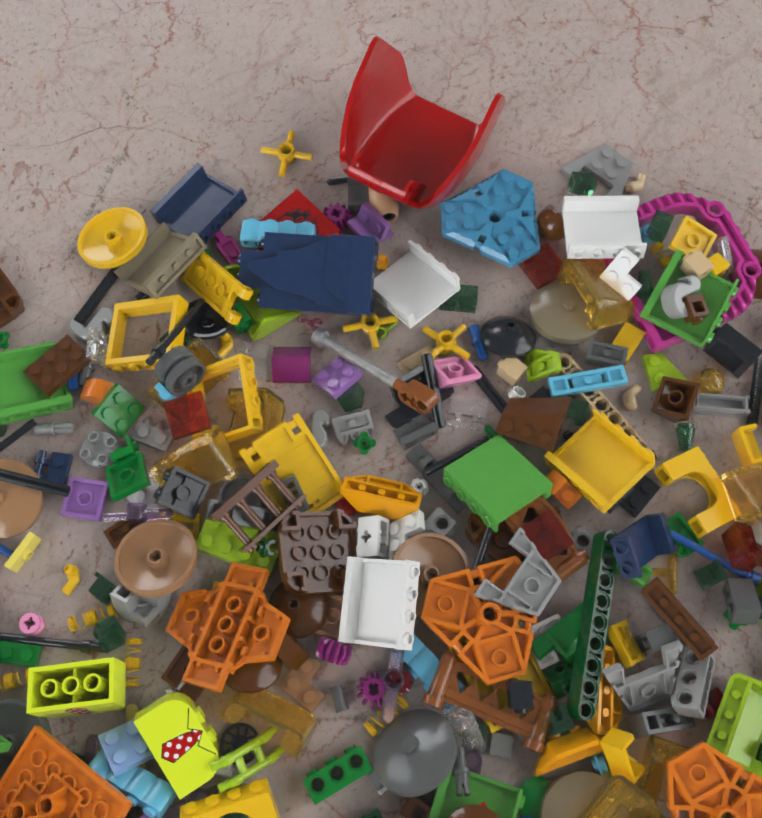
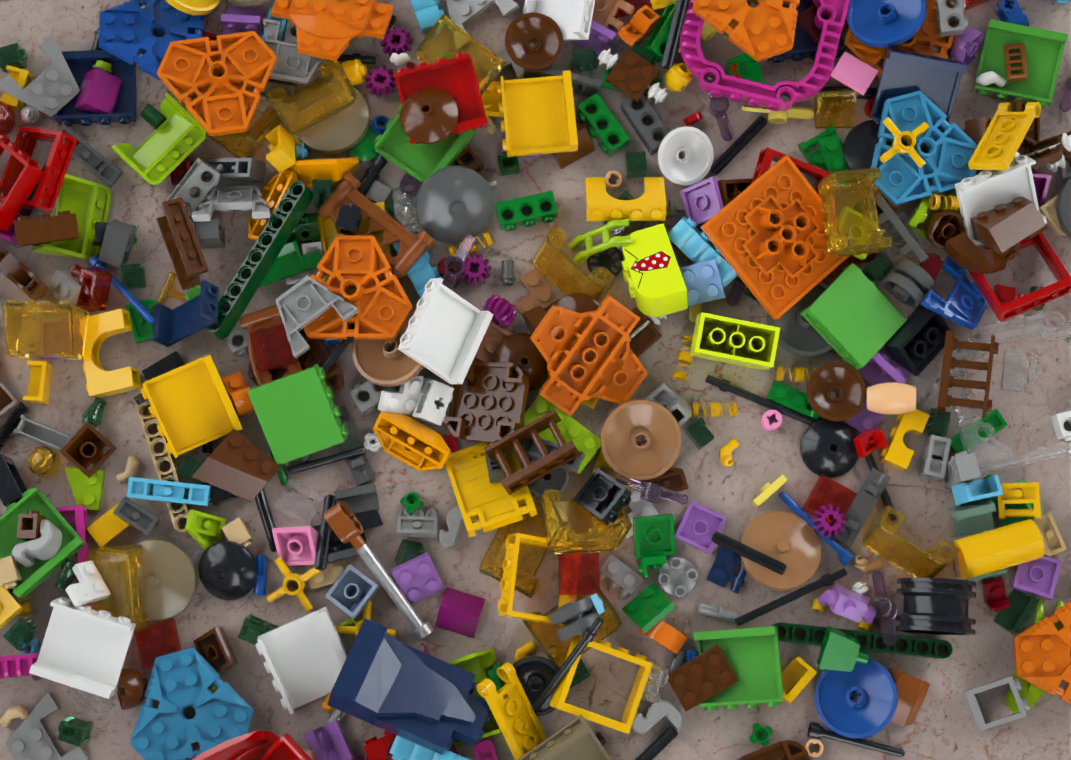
camera: 165 degrees left, 10 degrees up
(109, 634) = (700, 387): clear green panel -> none
(263, 547) = (536, 413): dark green plate -> none
(391, 349) = (352, 591): none -> sand blue slope
(461, 772) = (421, 173): dark grey pin -> none
(490, 274) = (216, 649): none -> reddish brown slope
(516, 392) = (242, 507): white plate -> none
(516, 762) = (372, 174): none -> black pin
(624, 644) = (237, 239): yellow plate -> none

